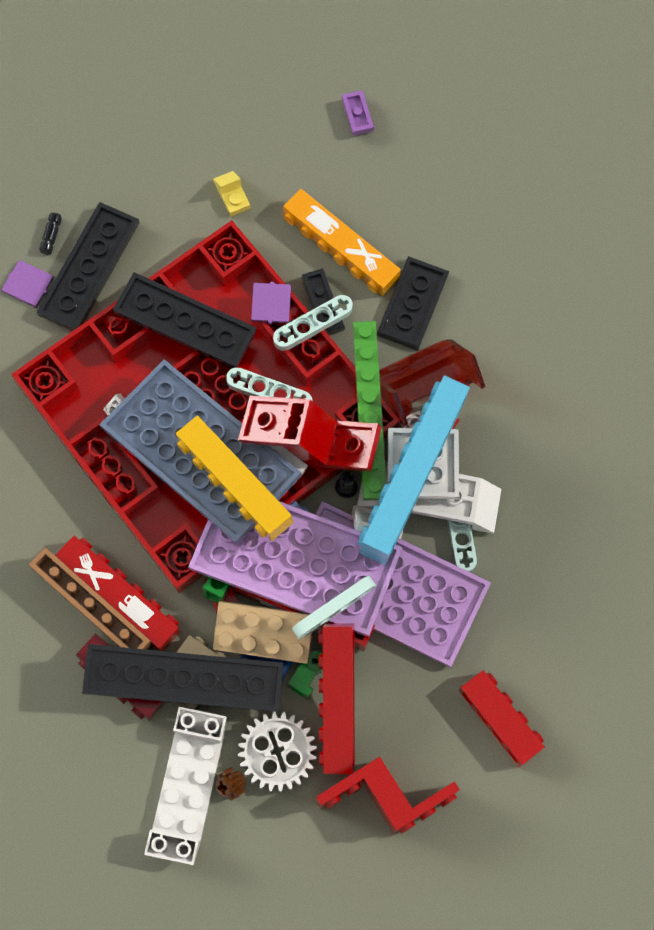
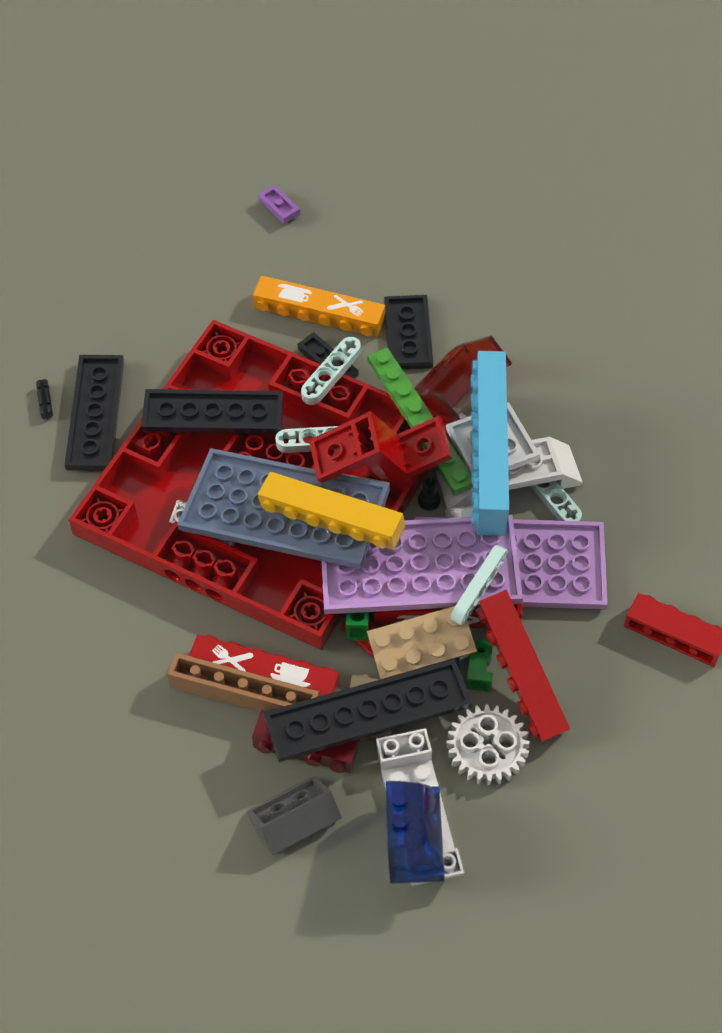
camera: 20 degrees left, 15 degrees down
(27, 283) = (42, 448): medium lavender piece -> none
(80, 740) = (294, 815): none -> dark grey slope
(166, 810) = (414, 832): none -> clear blue windscreen
(230, 783) = (459, 790): reddish brown gear -> none
(232, 193) = (198, 306): light yellow slope -> none
(271, 303) = (284, 370): medium lavender piece -> none
(387, 796) = (611, 734): red bracket -> none

